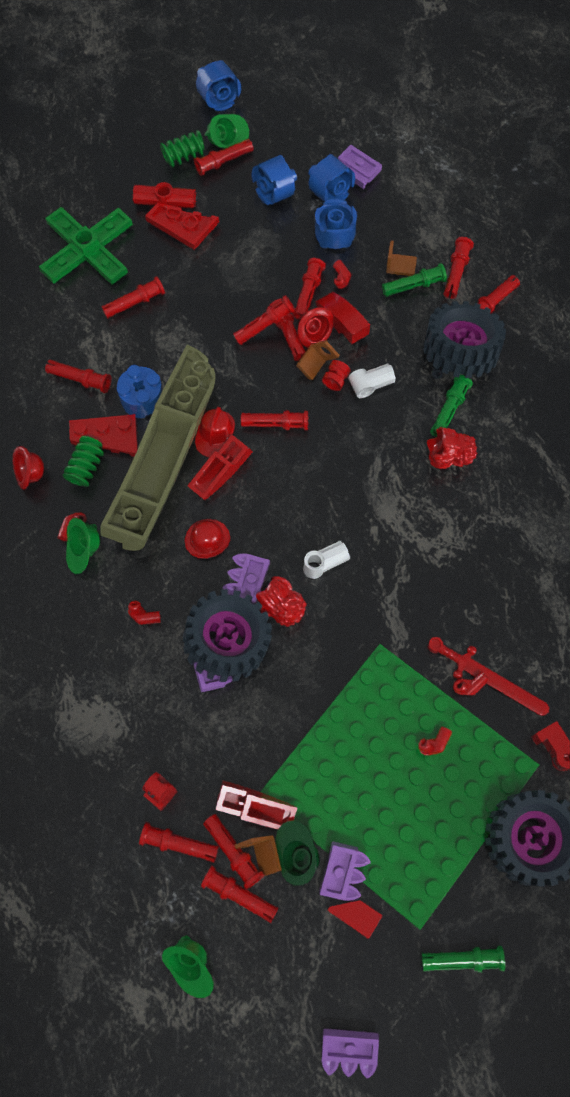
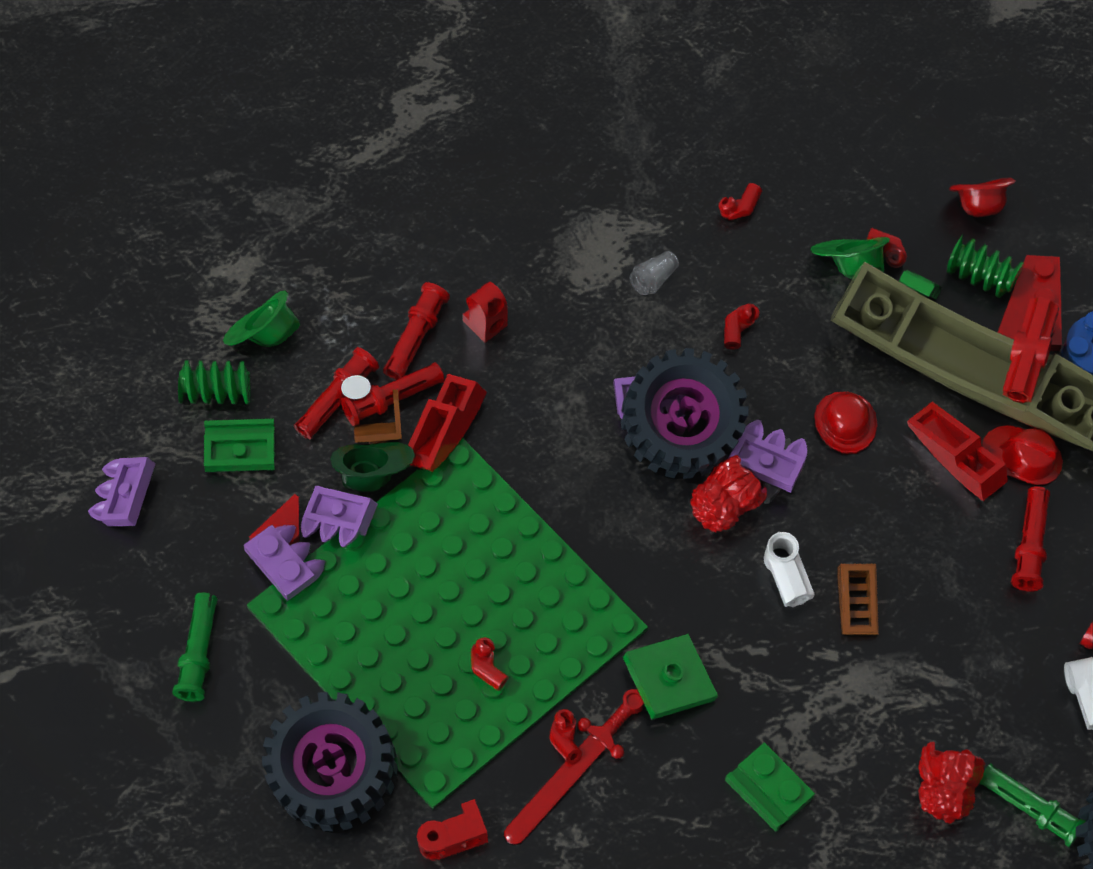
camera: 95 degrees right, 5 degrees down
(47, 624) = (734, 209): none -> red arm
(104, 497) = (920, 284): none -> green plate
(110, 677) = (651, 274): none -> clear cone
(155, 418) = (1030, 349): none -> red piece
(237, 877) = (355, 387): none -> white sticker
(246, 995) = (214, 382): none -> green piece
(294, 963) = (239, 445): none -> green plate
(327, 525) = (868, 572): none -> dark orange slope
(385, 907) = (284, 562): none -> medium lavender plate
(415, 623) = (670, 676): none -> green plate
(473, 554) = (770, 786): none -> green plate

